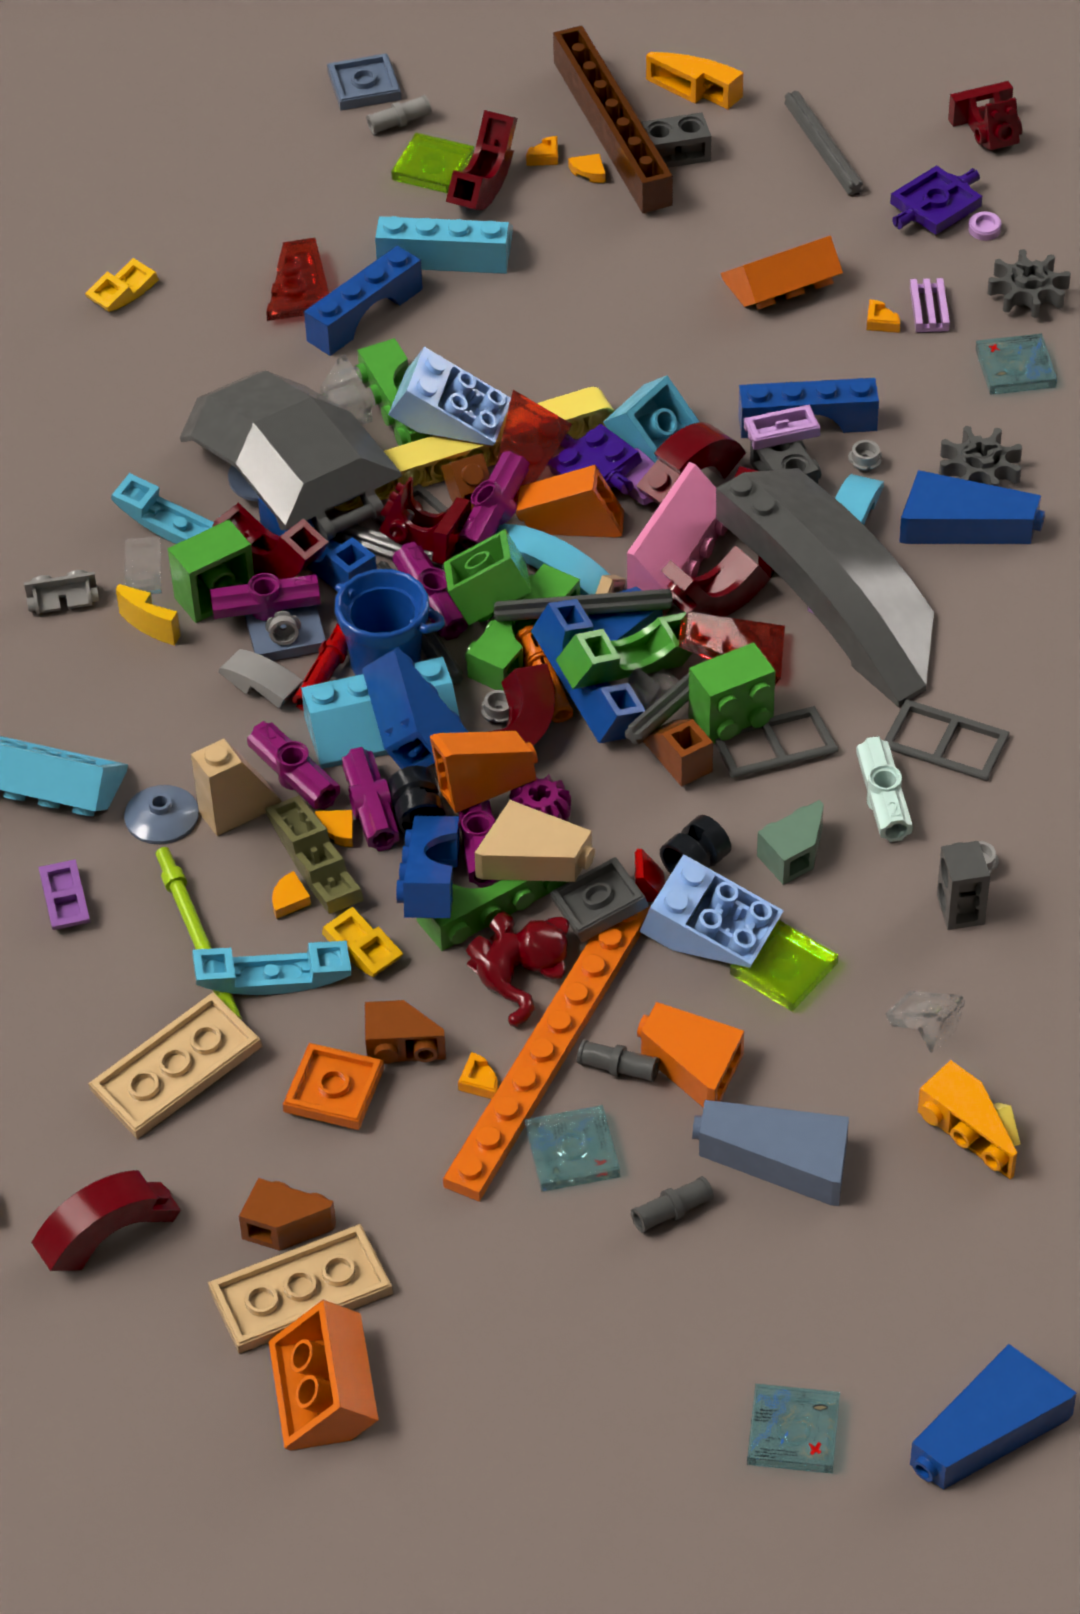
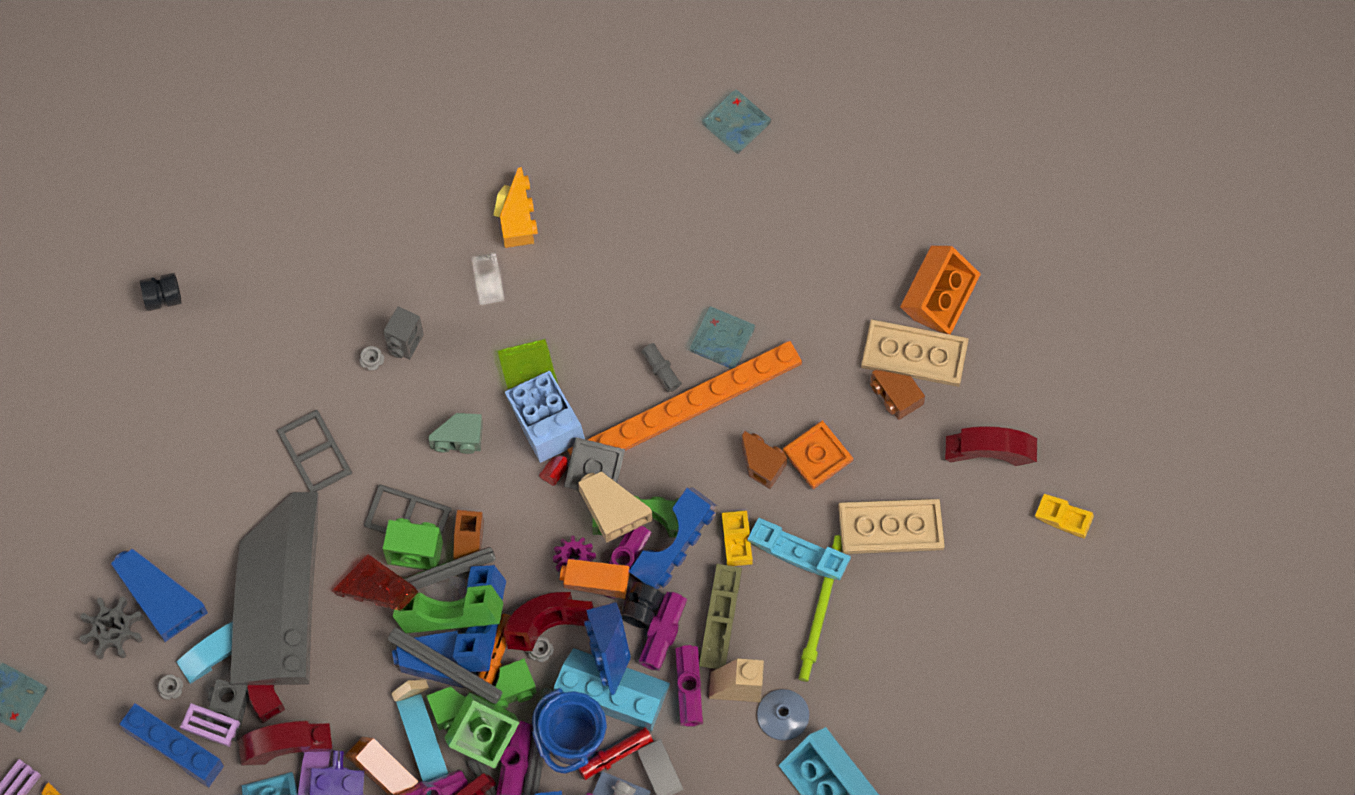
camera: 145 degrees left, 20 degrees up
(64, 894) = (877, 688): medium lavender slope -> none
(289, 895) = (753, 599): light orange tile -> none
(338, 825) = (693, 630): light orange tile -> none
(478, 1077) = (737, 412): light orange tile -> none
(537, 947) = (650, 463): dark red animal -> none
(672, 1204) = (700, 268): dark grey pin -> none
(678, 531) = (346, 688): bright pink slope -> none
(692, 1050) = (620, 343): orange slope -> none
(699, 840) = (525, 459): black wheel -> none
(719, 590) = (352, 638): dark red arch -> none
(777, 1145) = (622, 260): sand blue slope -> none
(884, 789) = (375, 447): light aqua piece -> none
(990, 1418) = (647, 60): blue slope -> none

